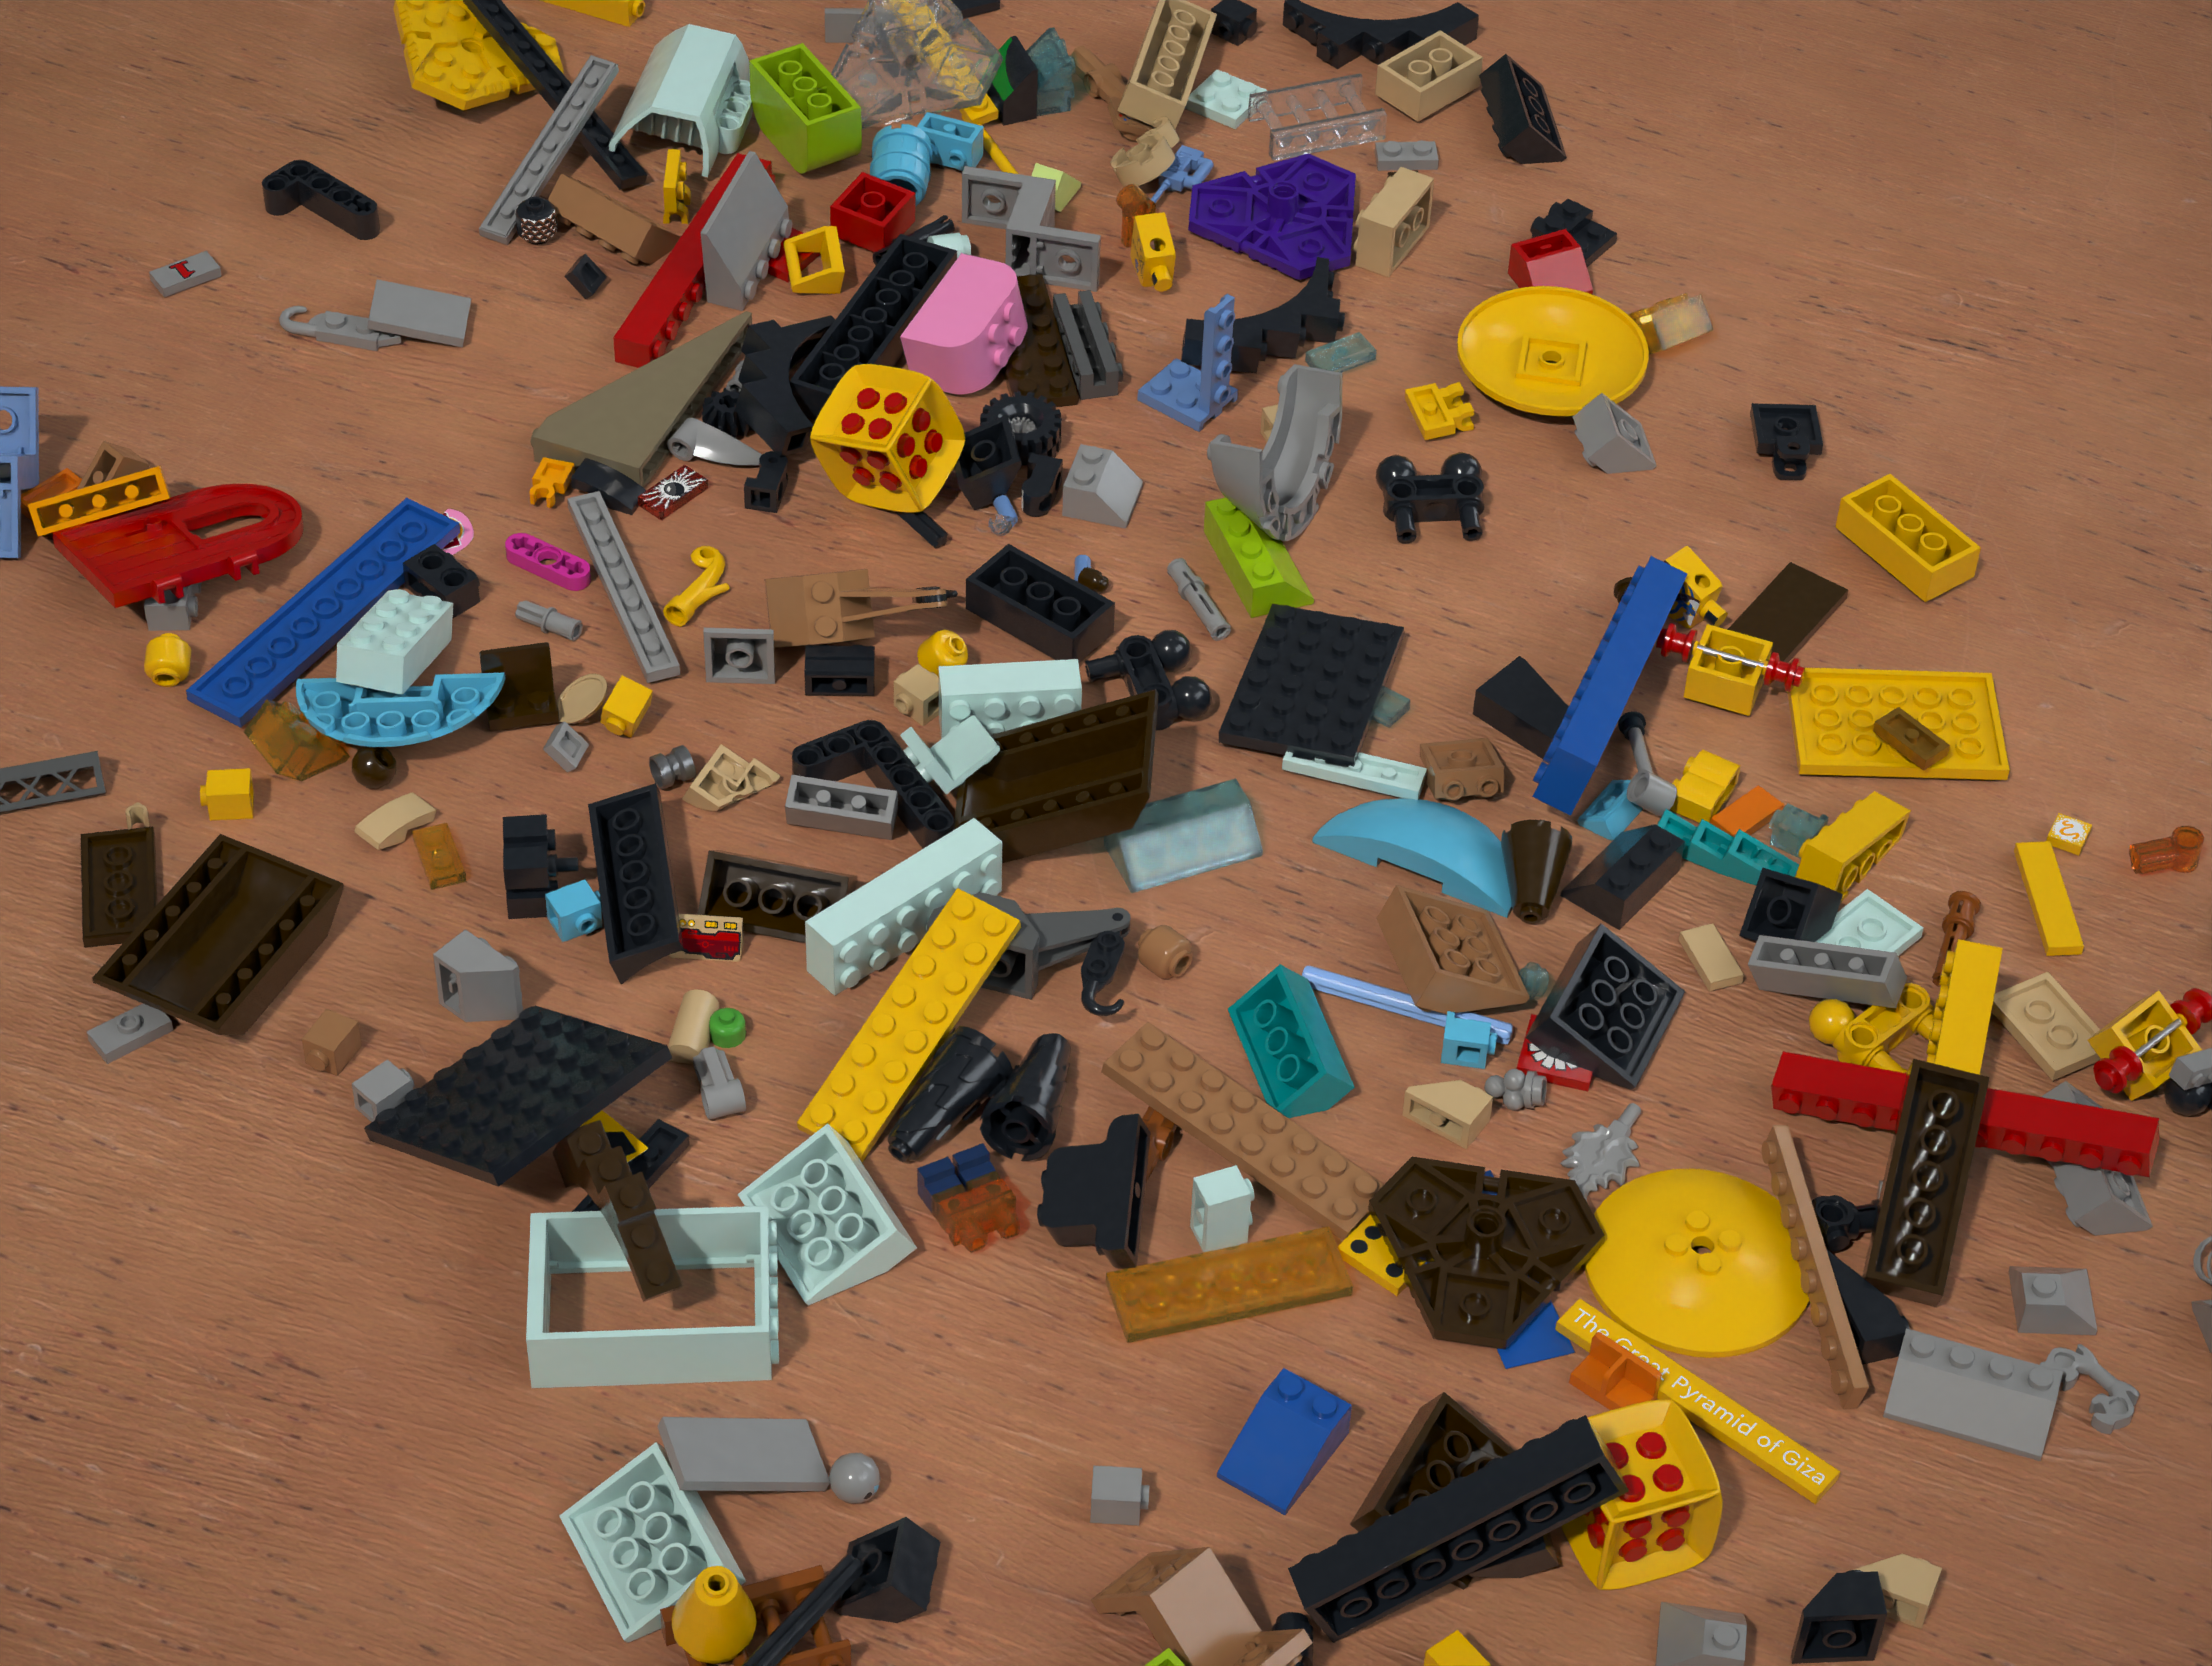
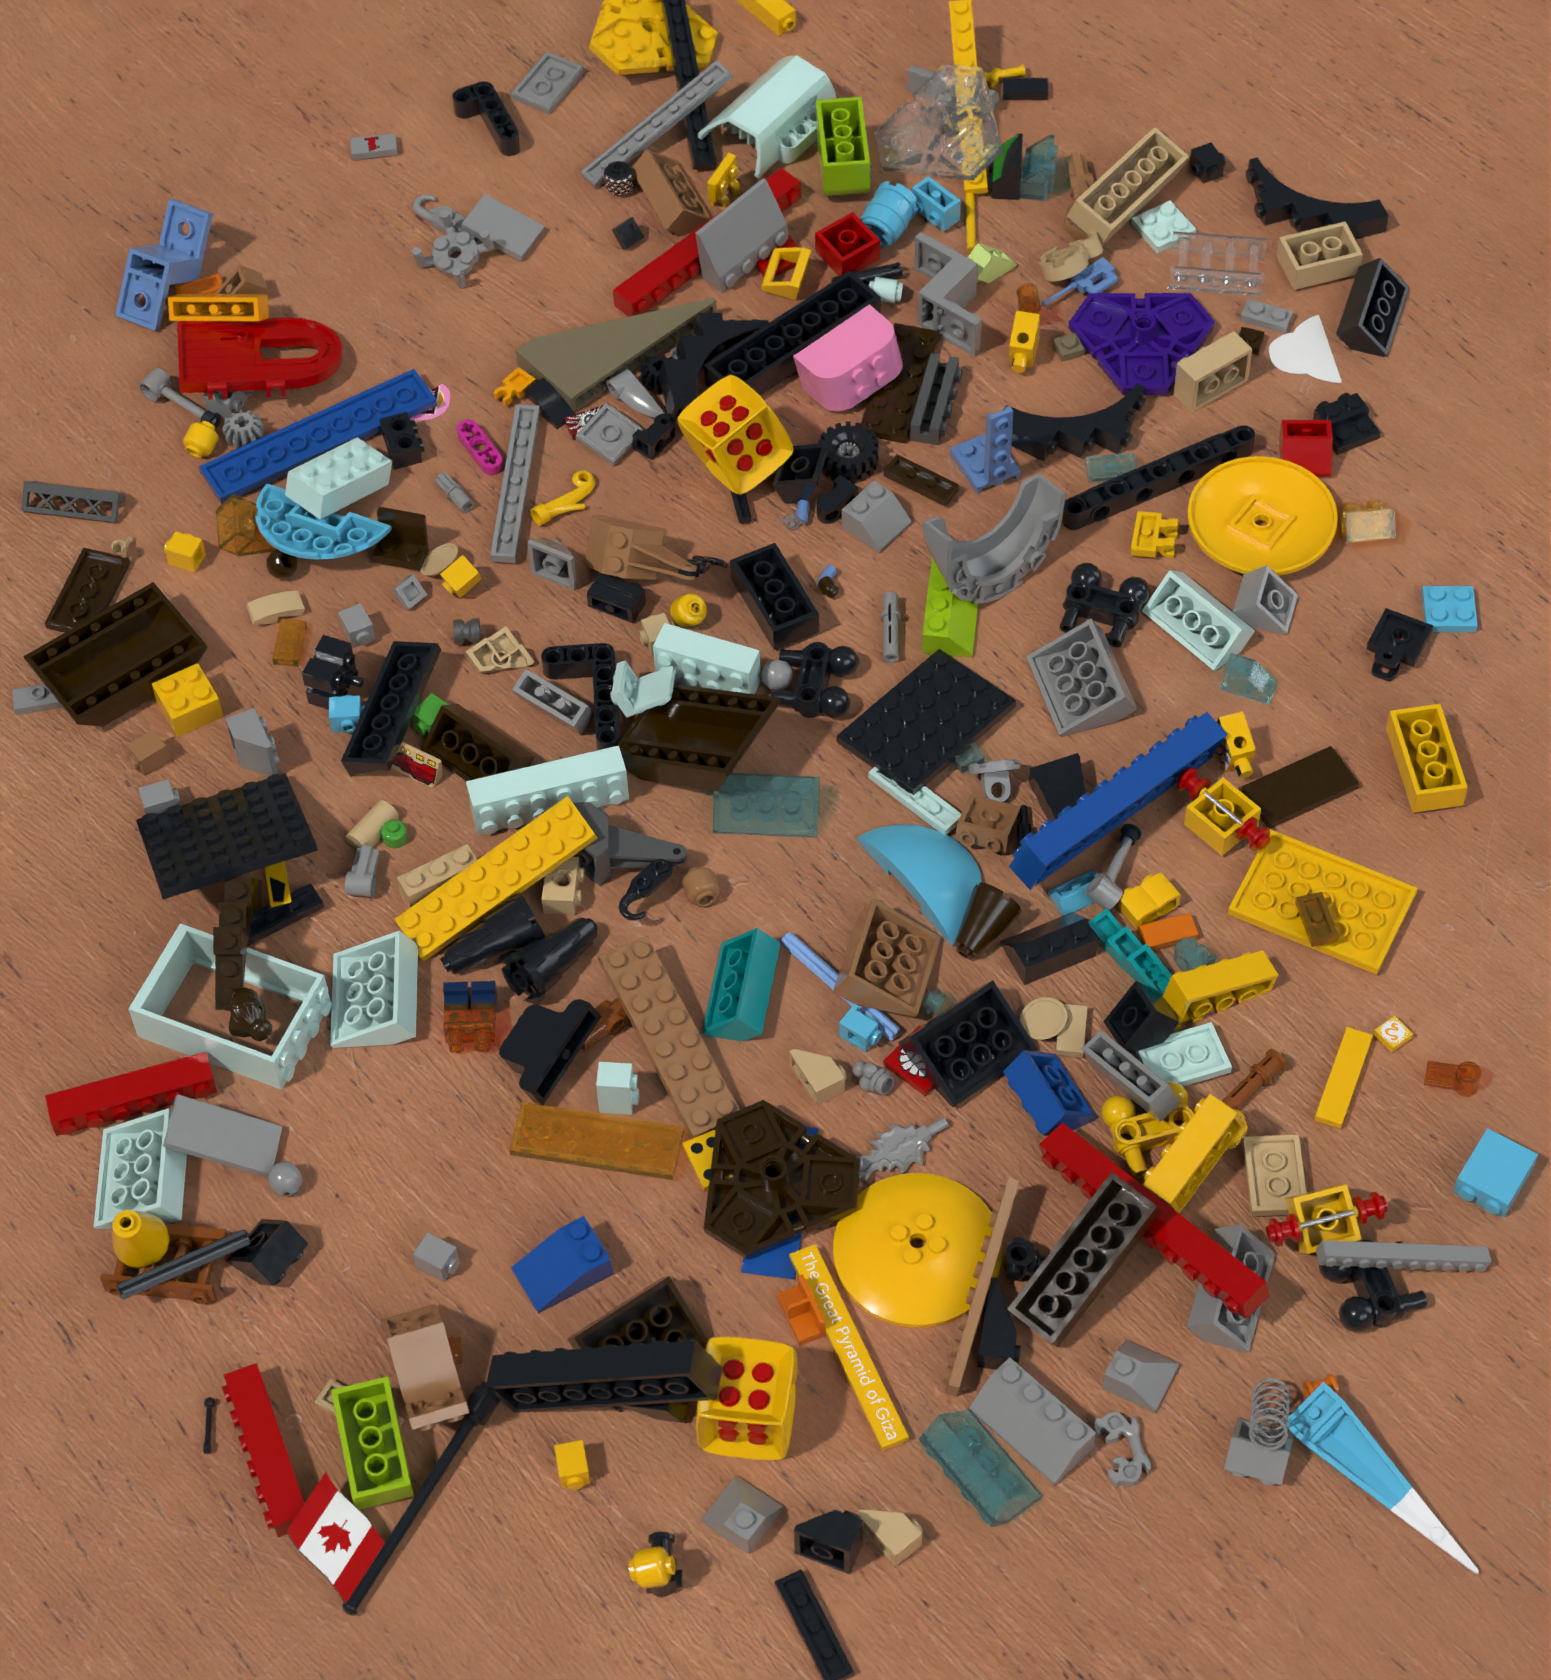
camera: 30 degrees right, 10 degrees up
(68, 613) = (158, 385): none -> light grey piece
(217, 631) = (242, 428): none -> light grey gear
(347, 962) = (187, 700): none -> yellow brick
(369, 147) = (547, 82): none -> light grey tile
(369, 345) = (451, 243): none -> light grey plate
(519, 799) = (356, 625): none -> light grey brick
(572, 1456) = (130, 1094): none -> red brick
(688, 874) = (426, 714): none -> bright green brick
(700, 1289) = (248, 1015): none -> dark brown piece
(708, 497) = (608, 434): none -> light grey tile
(817, 1055) = (430, 876): none -> tan brick
(995, 1013) = (563, 899): none -> tan brick
(1099, 688) = (777, 674): none -> light grey piece
(1127, 434) = (921, 480): none -> dark brown plate
(1202, 249) = (1068, 347): none -> dark tan plate
(1411, 342) = (1157, 477): none -> black beam
(1435, 710) = (995, 772): none -> light grey tile
(1464, 582) = (1081, 680): none -> light grey slope
(1473, 180) = (1305, 352): none -> white sticker
(1513, 771) = (1023, 828): none -> black axle
(1552, 480) = (1197, 619): none -> light aqua slope
(1649, 523) = (1247, 679): none -> clear light blue slope
(1675, 951) = (1044, 1018): none -> tan piece
(1733, 1032) = (1048, 1092): none -> blue slope
(1818, 384) = (1449, 608): none -> medium azure plate
(1946, 1472) = (979, 1467): none -> clear light blue slope

